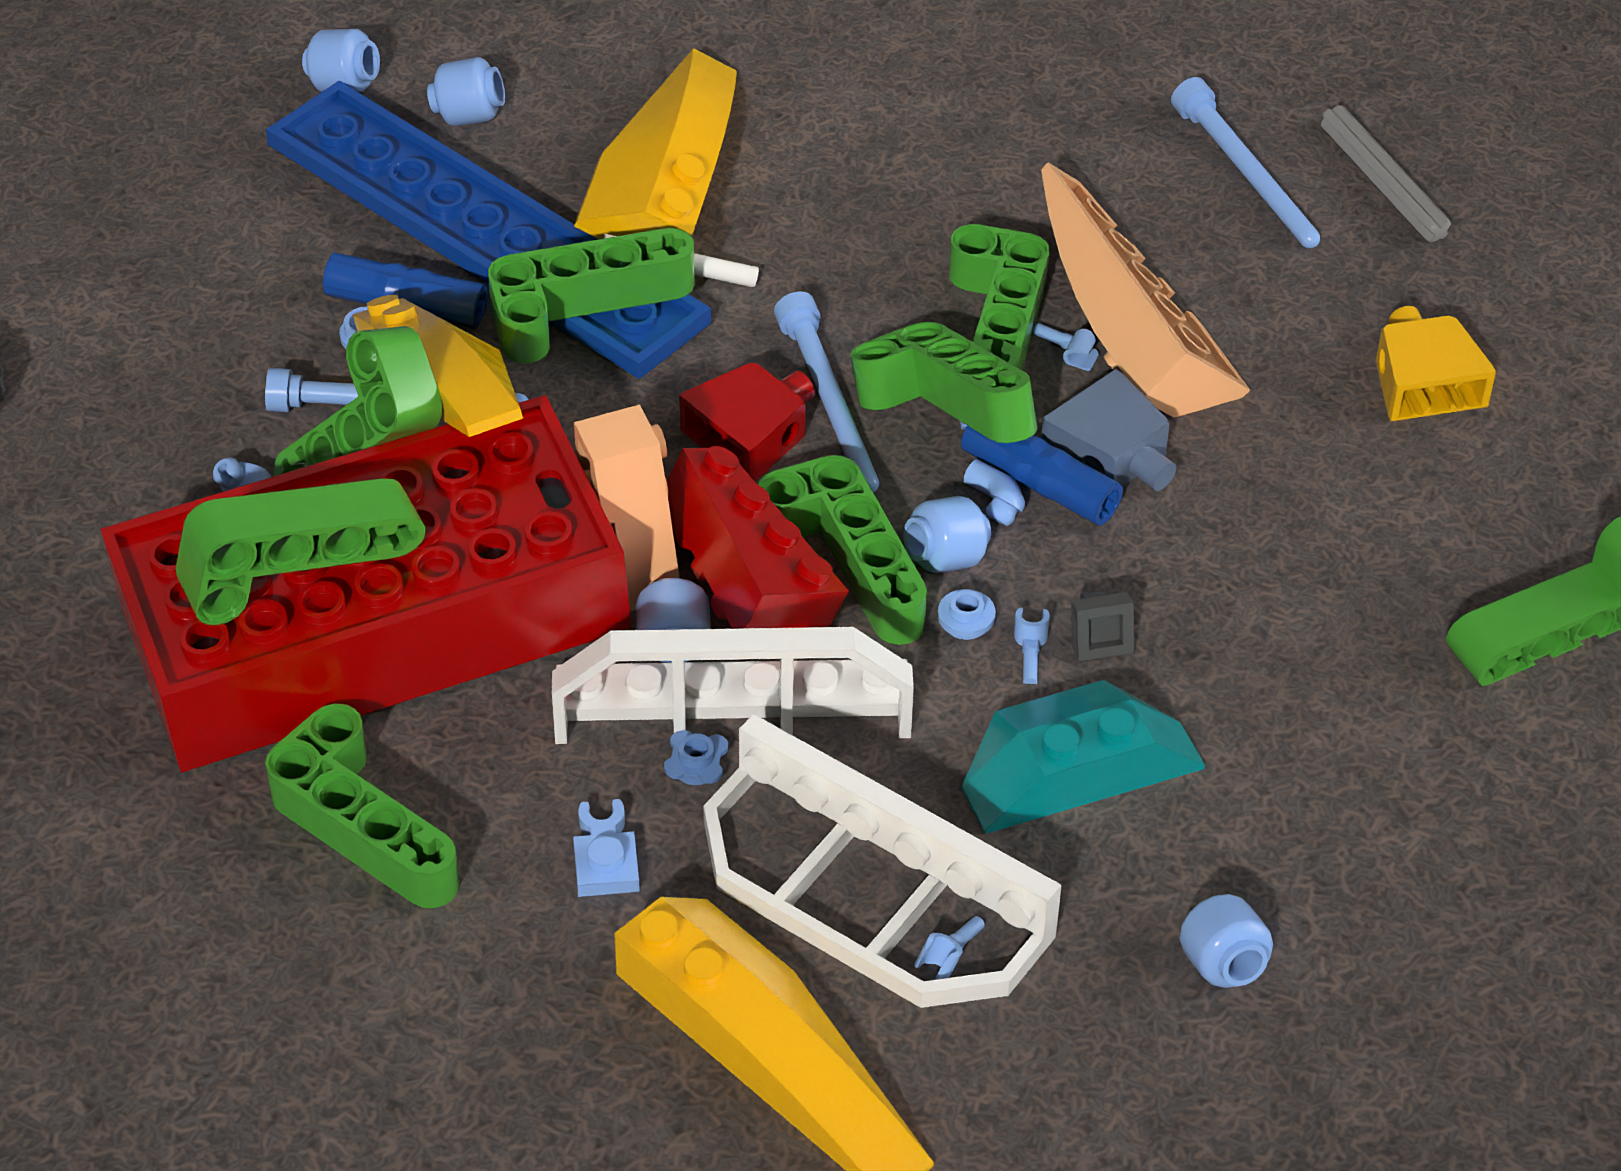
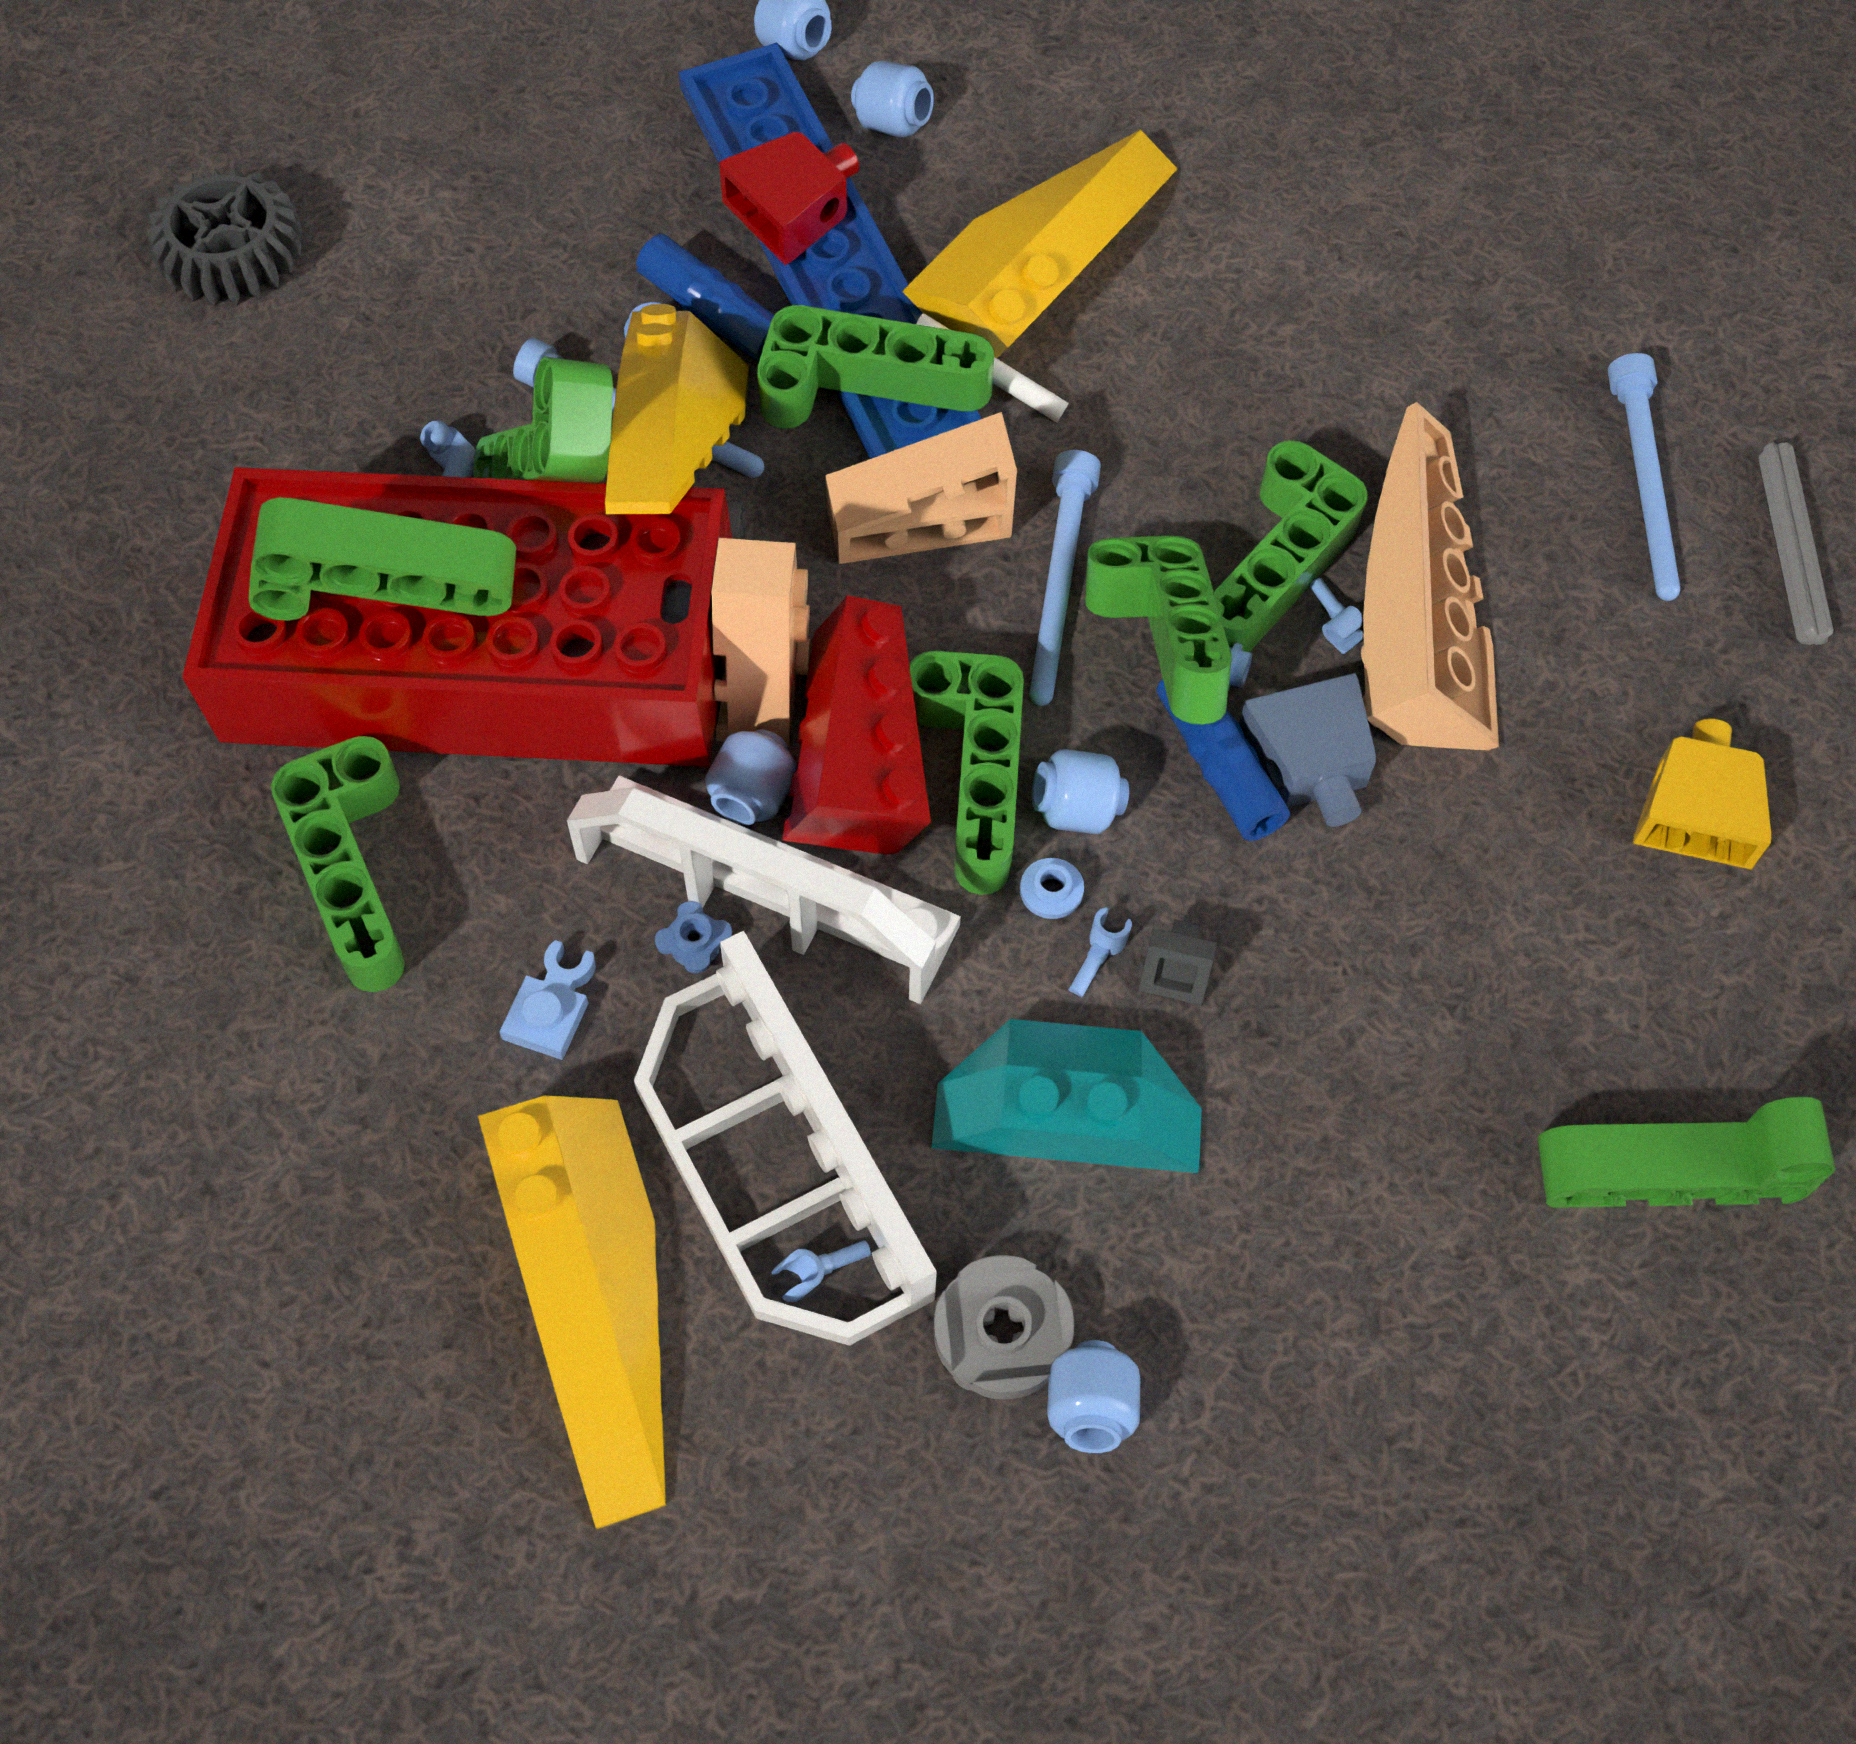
camera: 25 degrees right, 15 degrees up
(429, 183) = (788, 191): none -> red torso
(703, 341) = (926, 494): none -> light nougat wedge
(748, 414) = (958, 574): red torso -> none
(999, 486) = (1170, 759): light blue arm -> none
(1116, 956) = (971, 1303): none -> light grey plate

